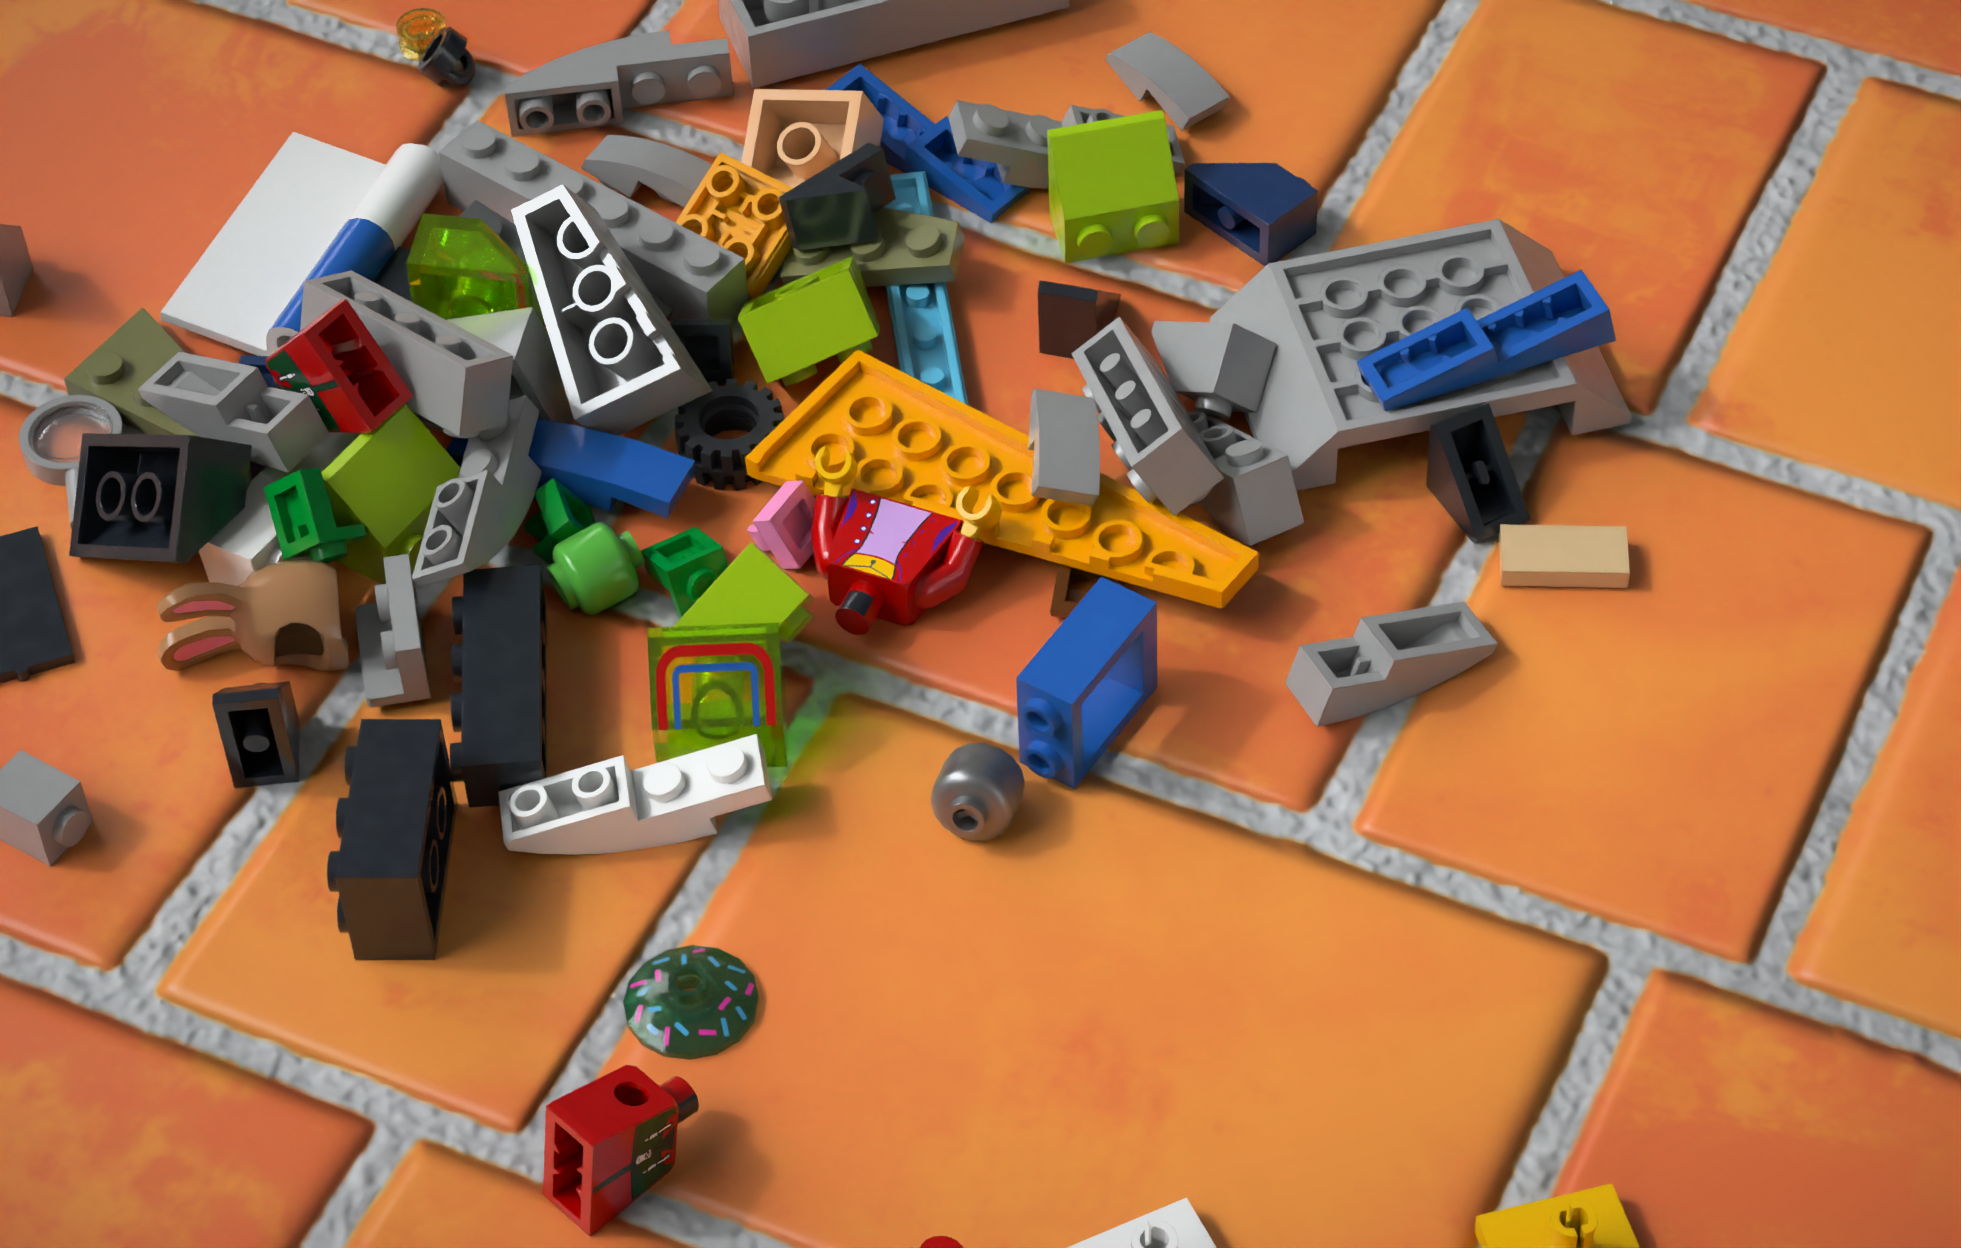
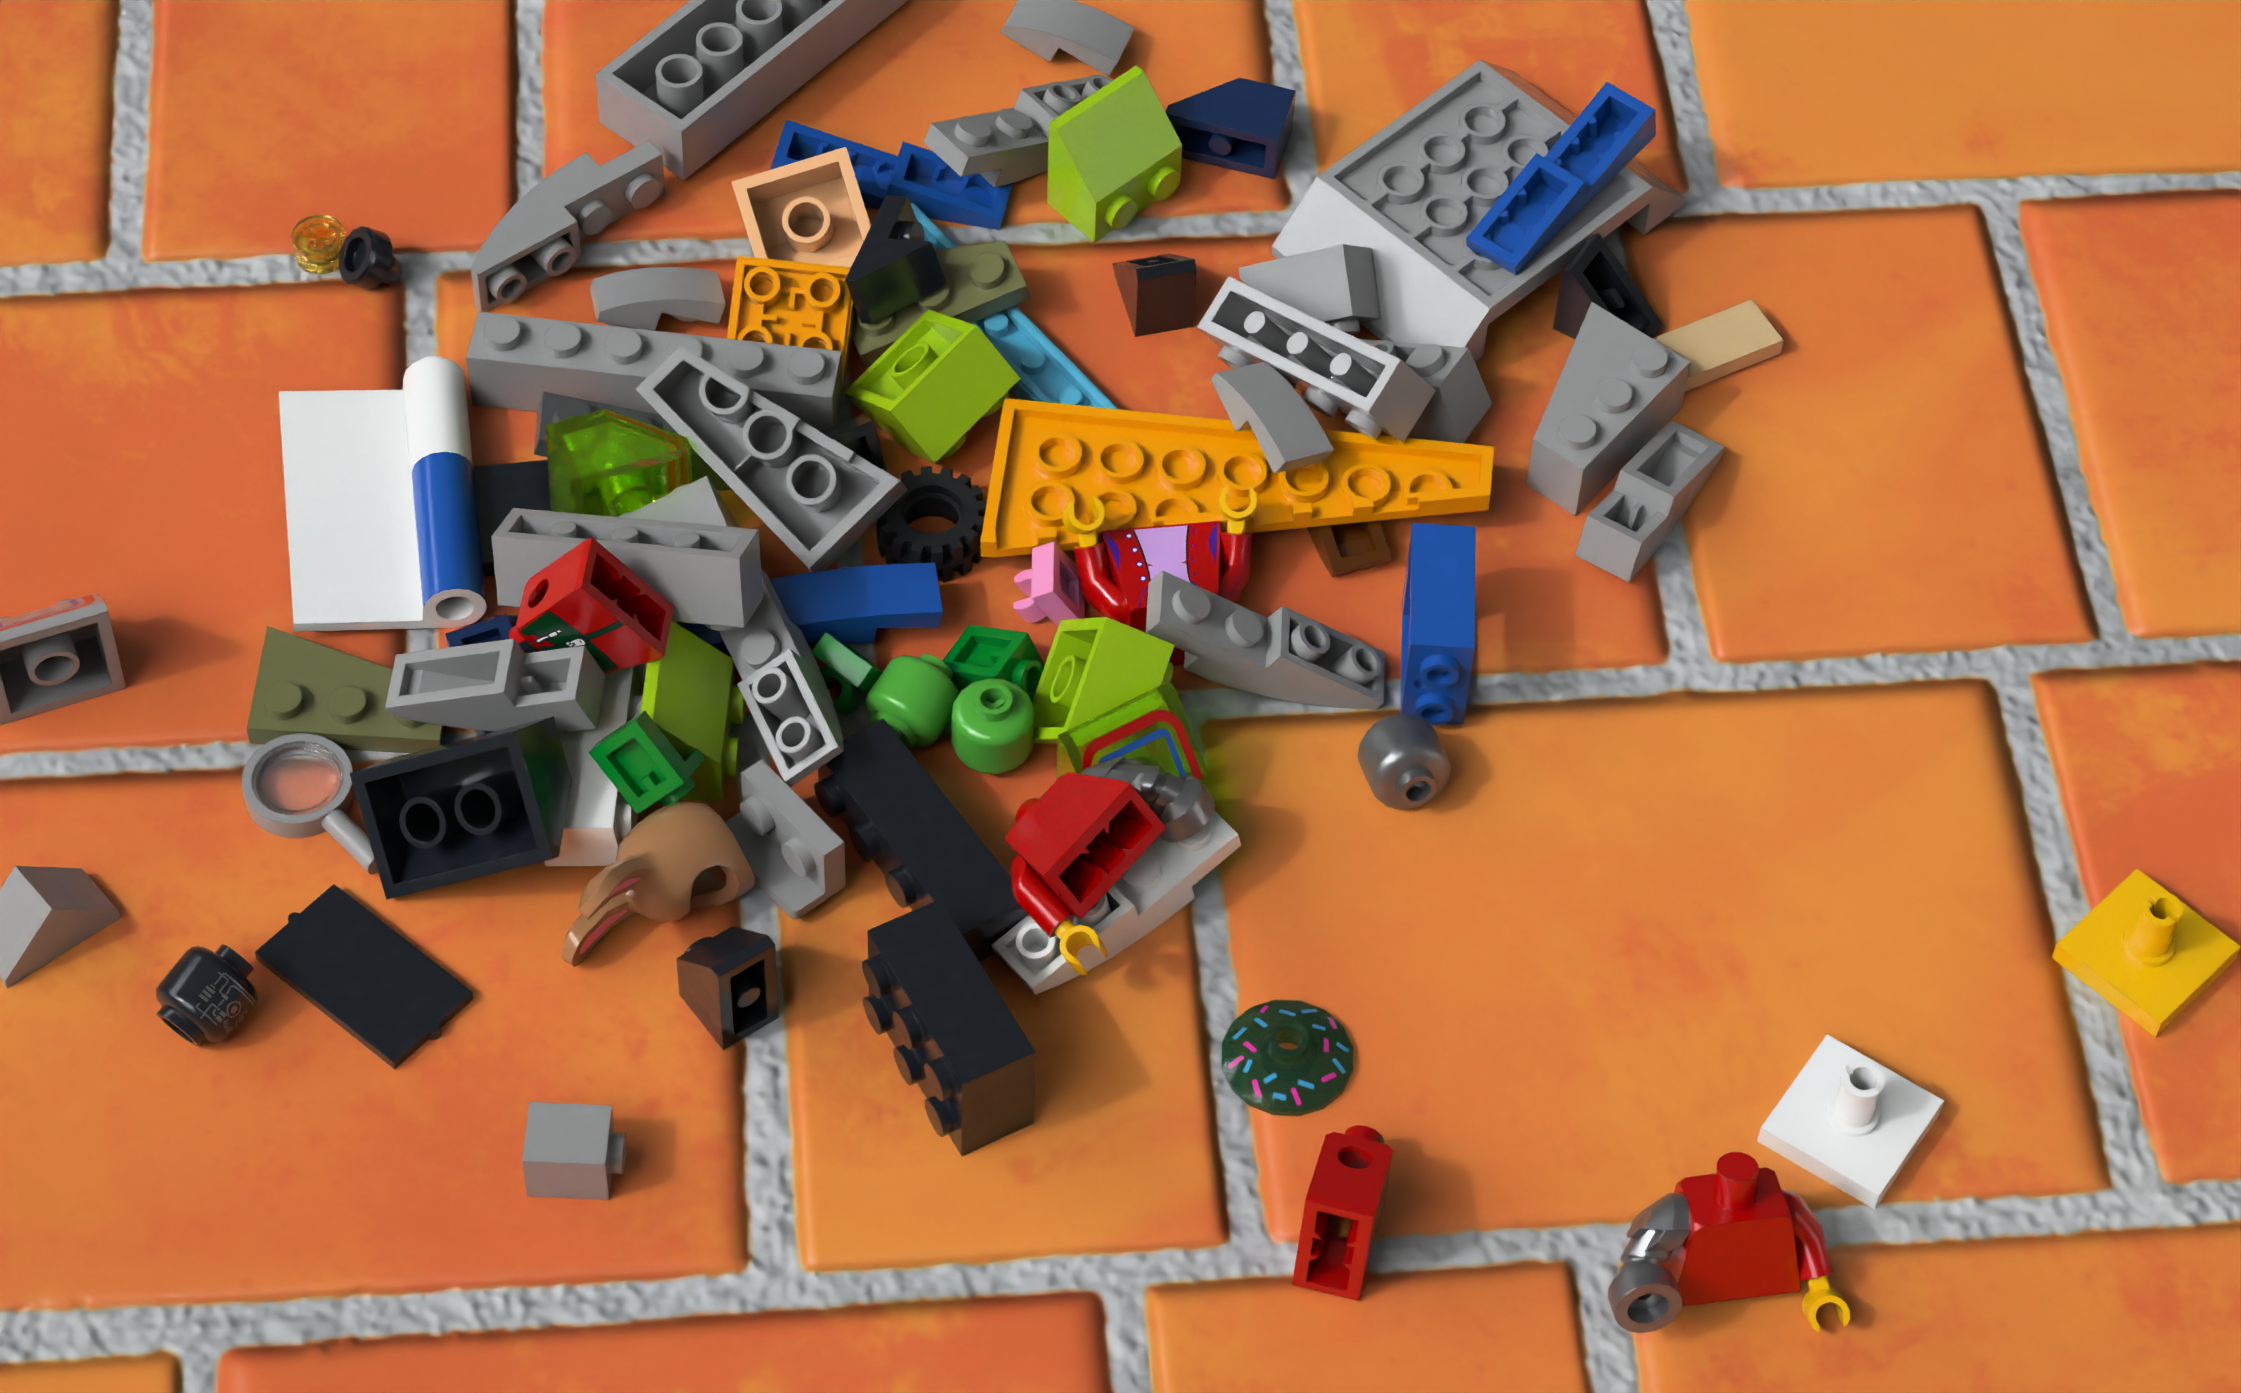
camera: 35 degrees left, 5 degrees up
(616, 721) = (1089, 834): none -> red torso
(632, 604) = (993, 726): none -> bright green head
(911, 643) = (1269, 656): none -> light grey slope
(1398, 557) = (1603, 409): none -> light grey wedge

